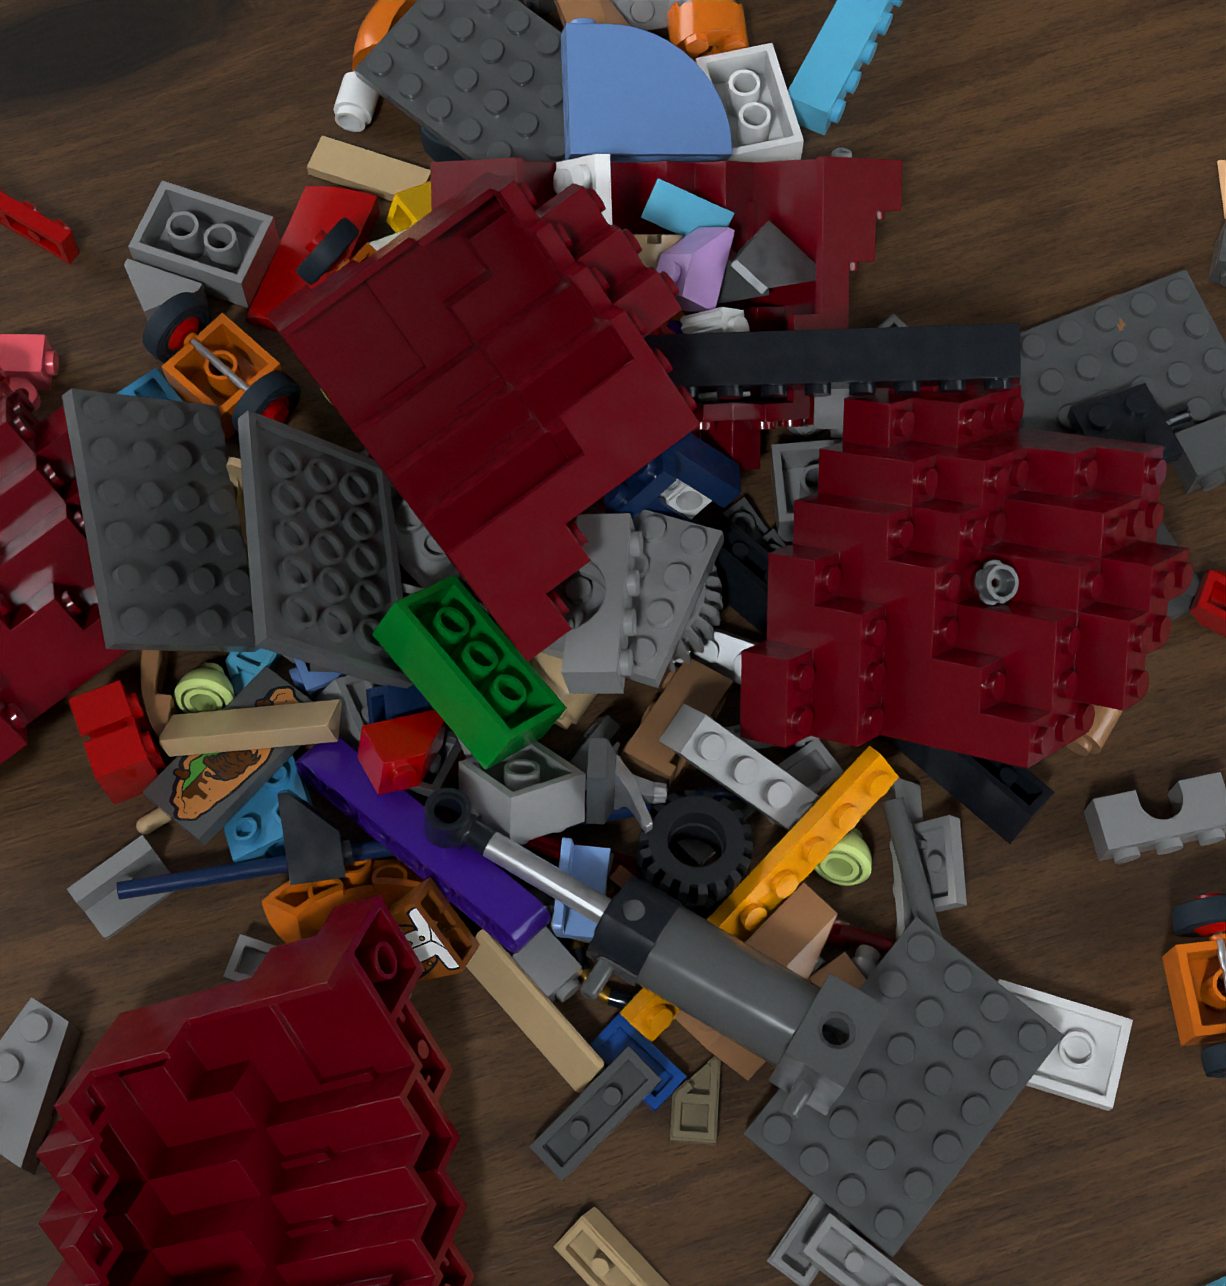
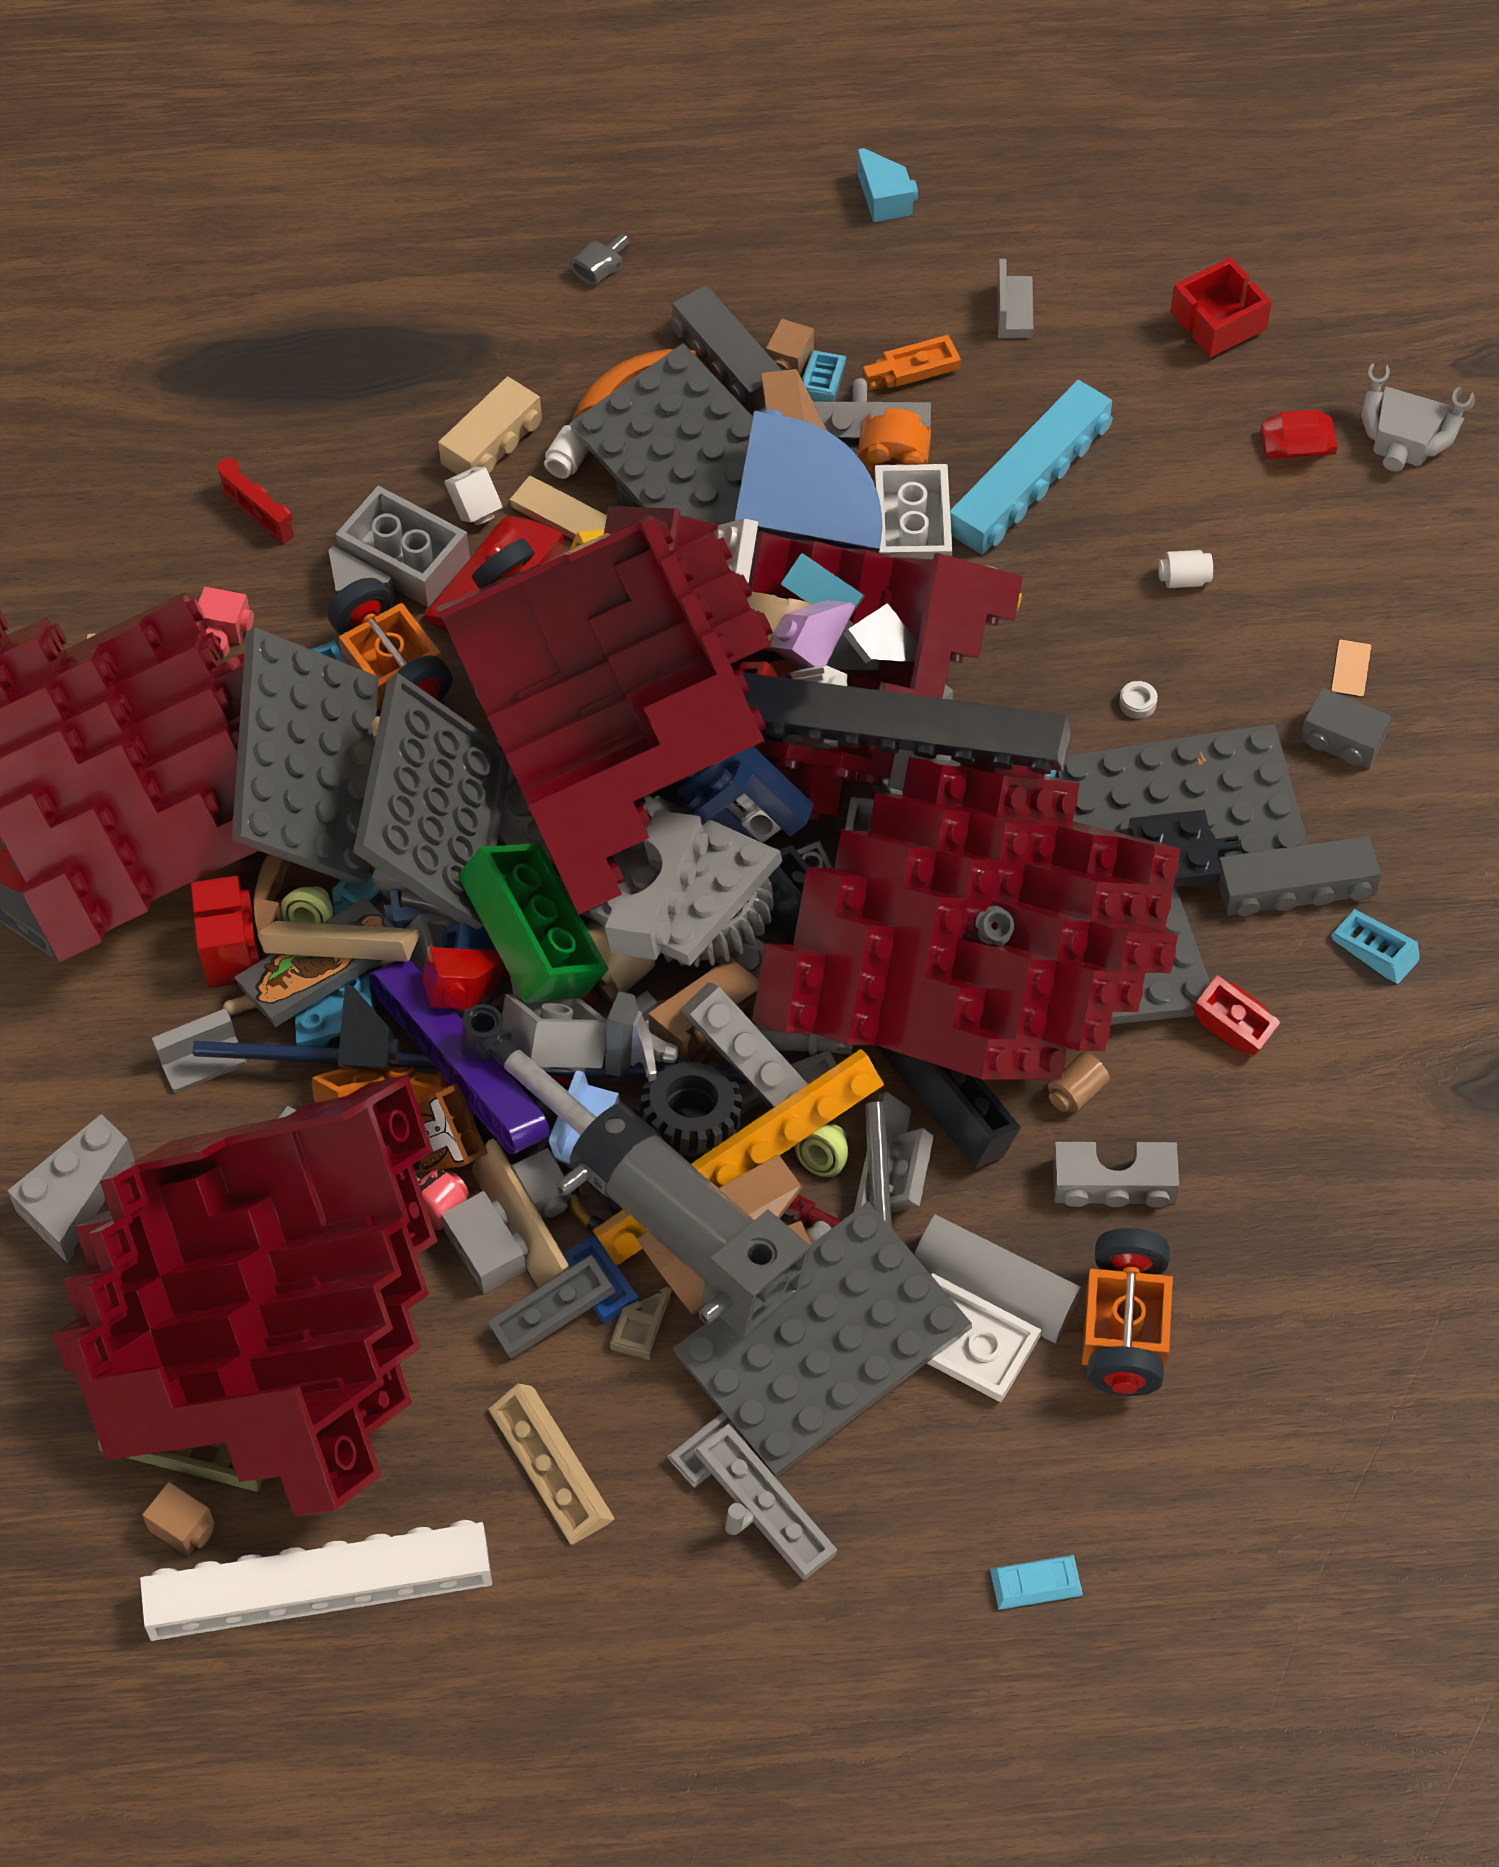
camera: 15 degrees right, 10 degrees down
(266, 92) = (491, 428): none -> tan brick
(268, 170) = (474, 495): none -> white brick
(442, 1007) = (440, 1193): none -> coral head
(501, 1048) = (485, 1242): none -> light grey brick
(1031, 267) = (1138, 700): none -> white tile
(1044, 112) = (1186, 568): none -> white brick
(1068, 967) = (998, 1276): none -> light grey brick

